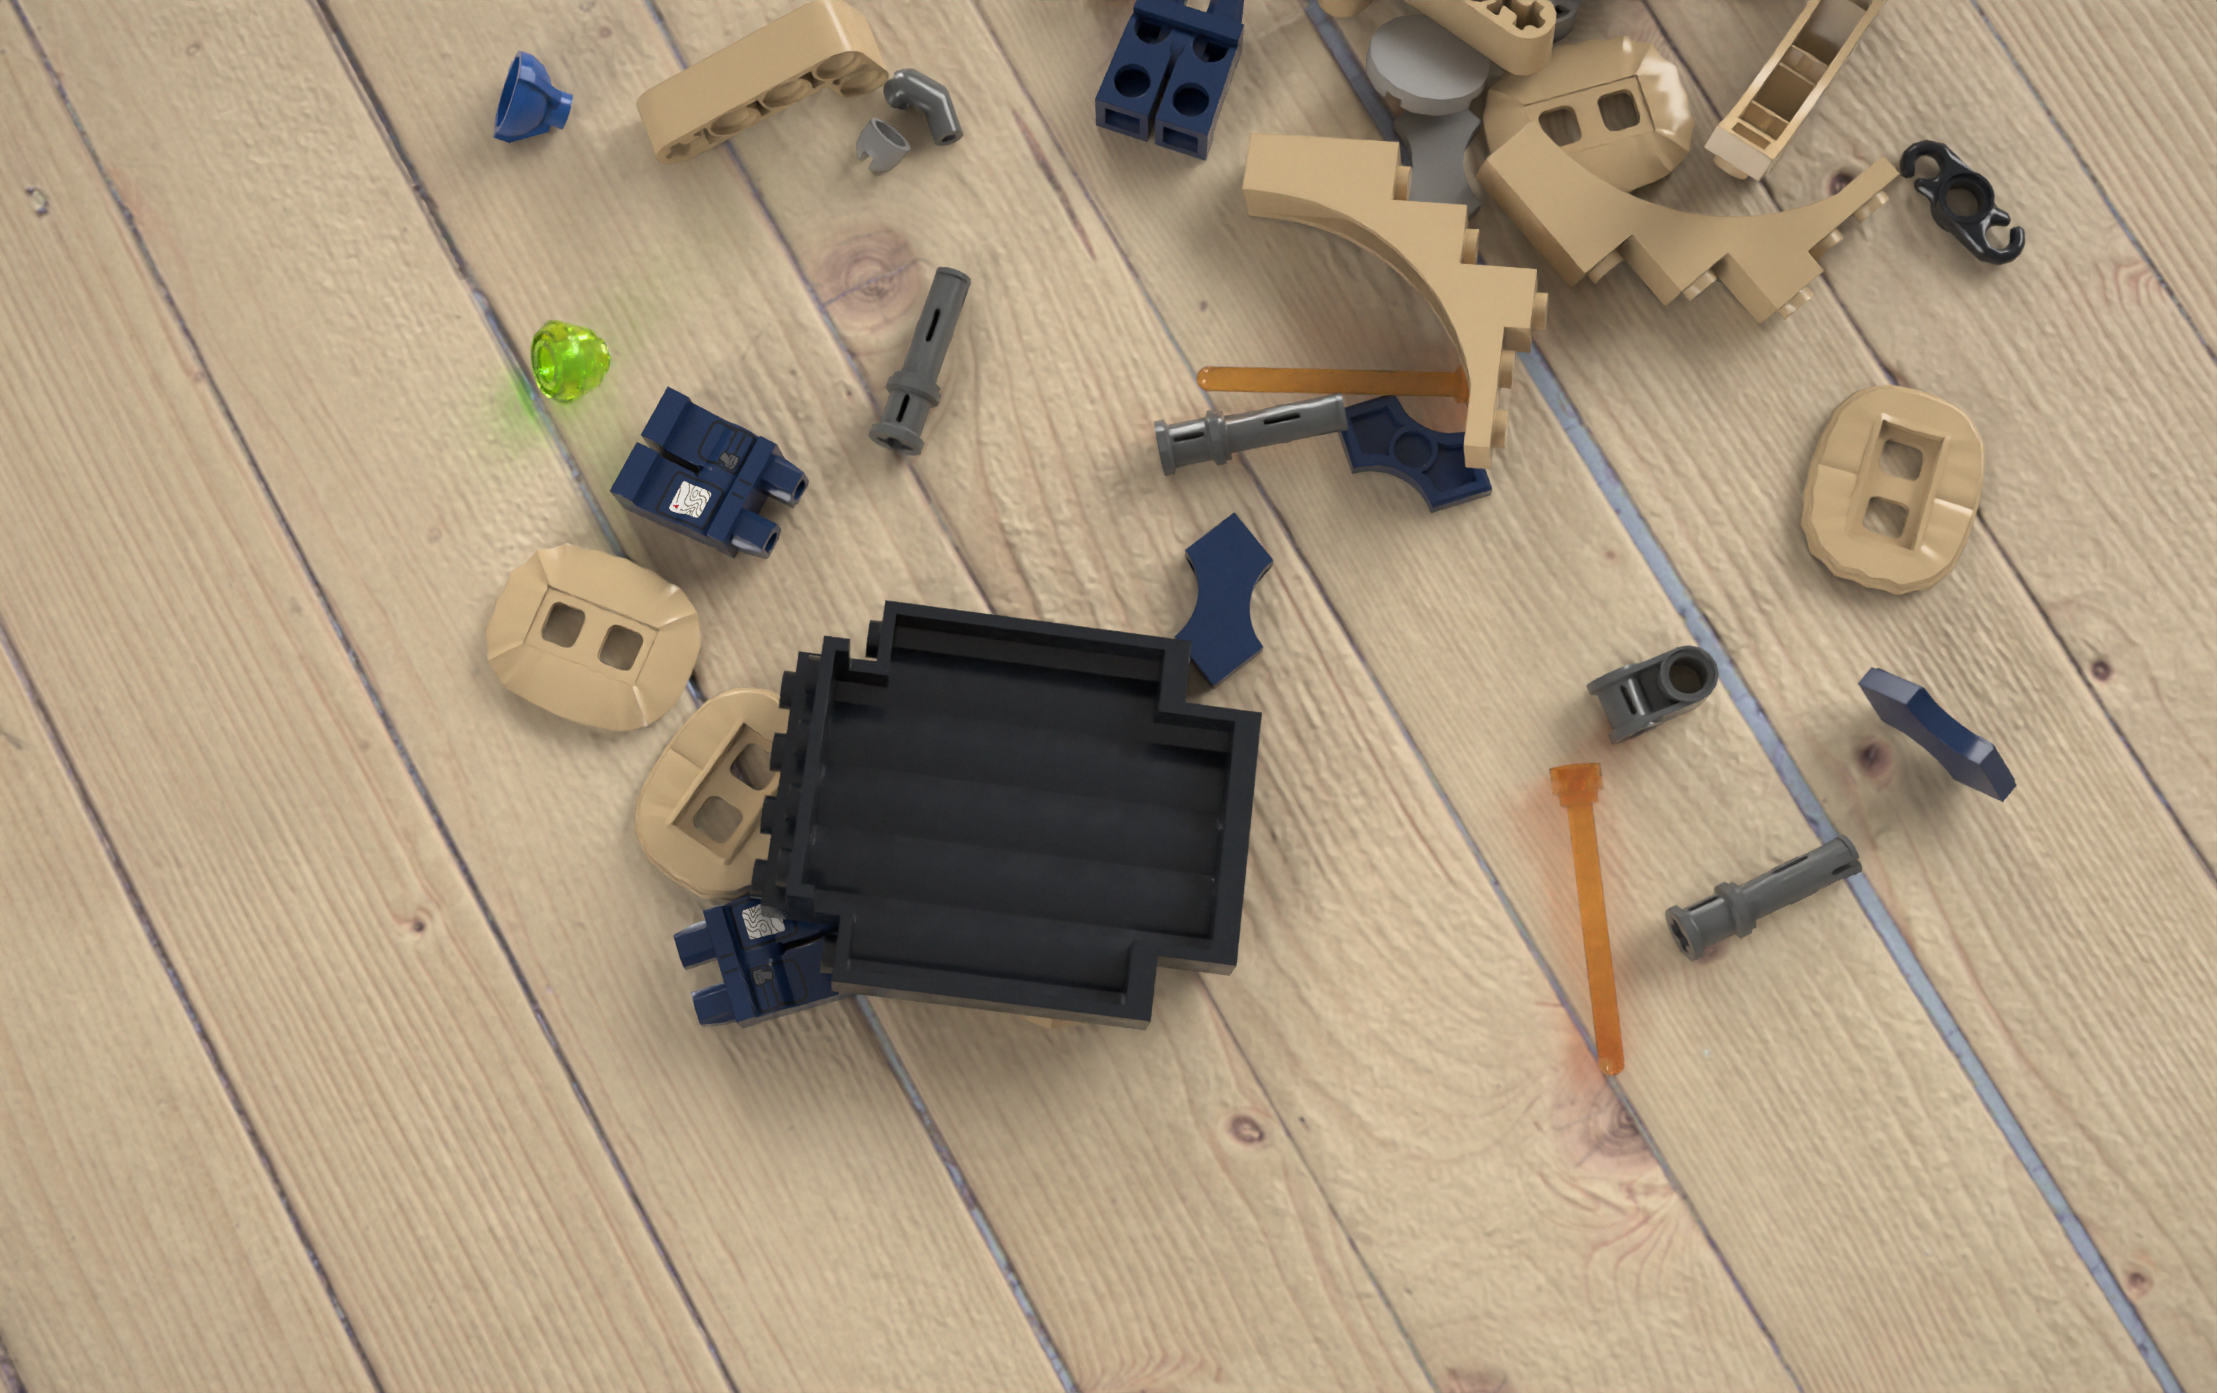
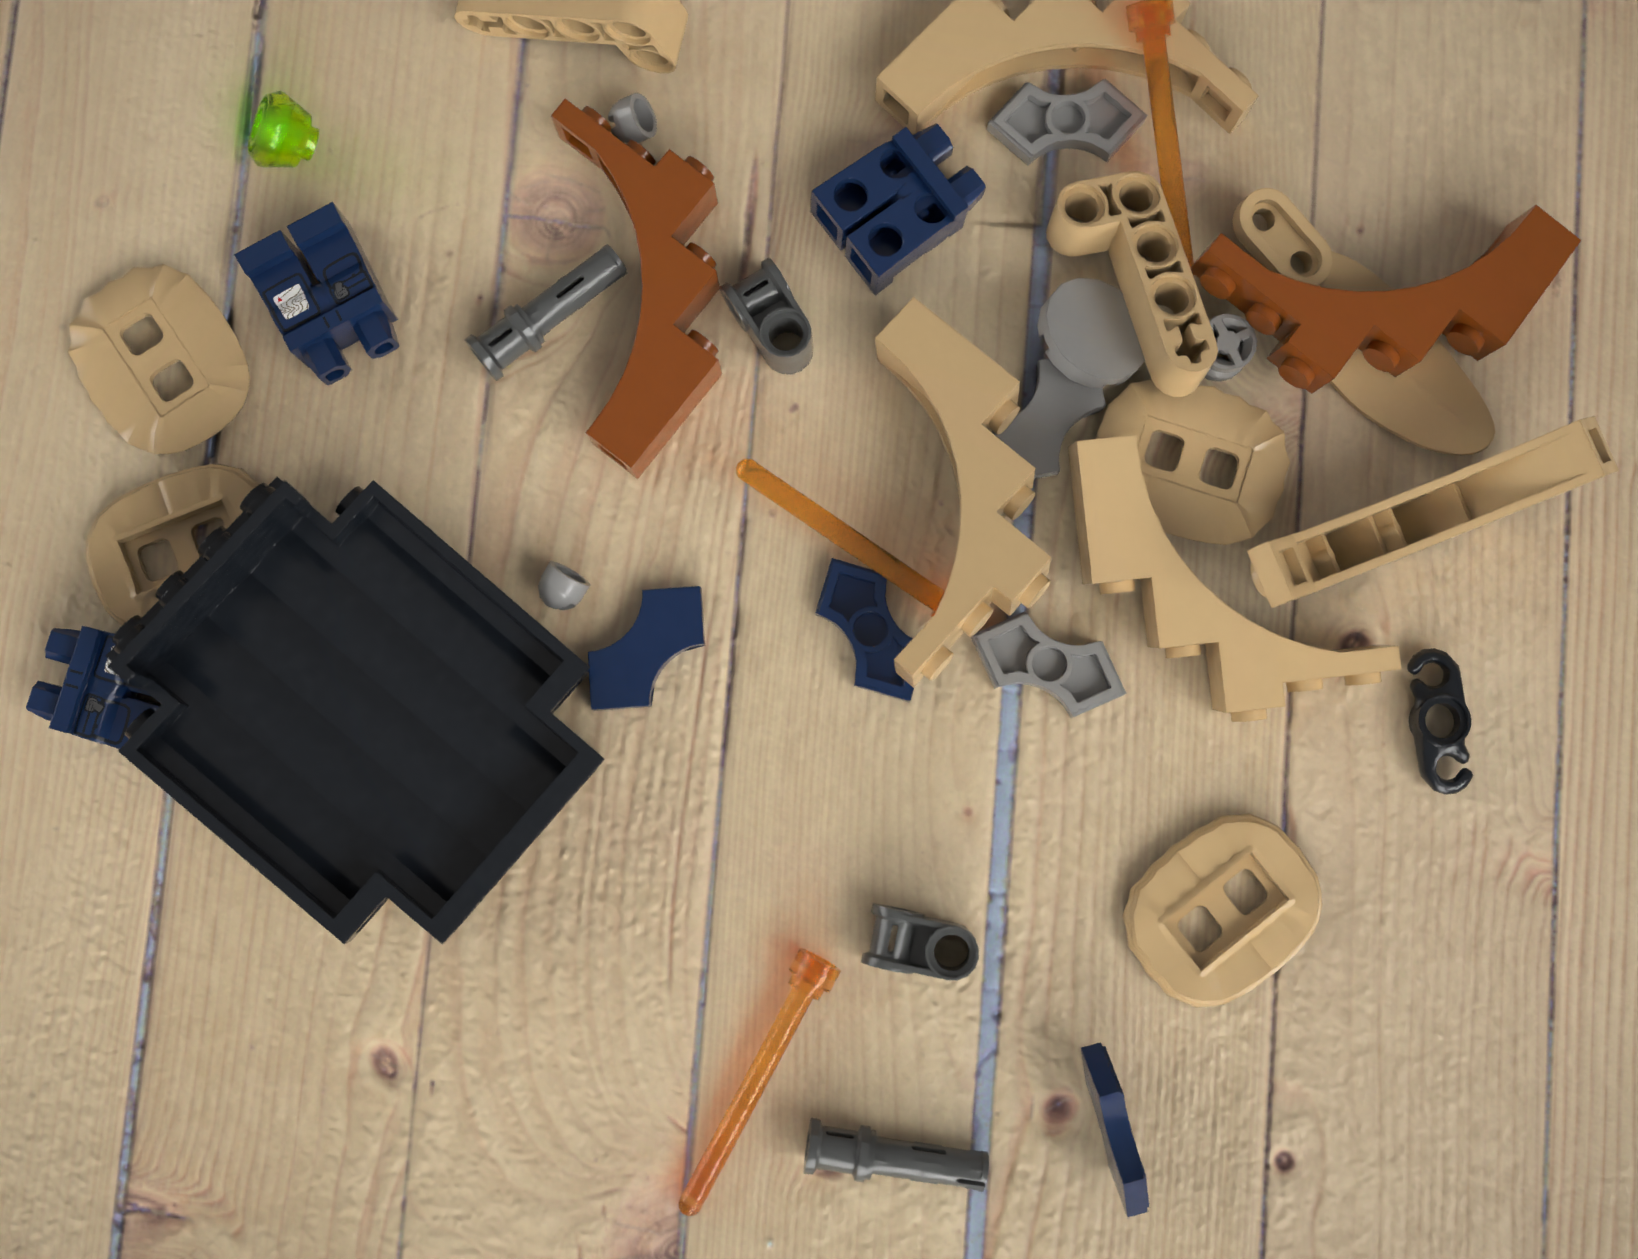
camera: 30 degrees right, 5 degrees up
(931, 97) = (696, 105): dark grey arm -> none
(1021, 257) = (666, 367): none -> dark orange arch
(1110, 596) = (561, 587): none -> light grey hinge
(1122, 228) = (767, 309): none -> dark grey piece
(1219, 435) = (732, 521): dark grey pin -> none
(1562, 384) = (1073, 674): none -> light grey tile

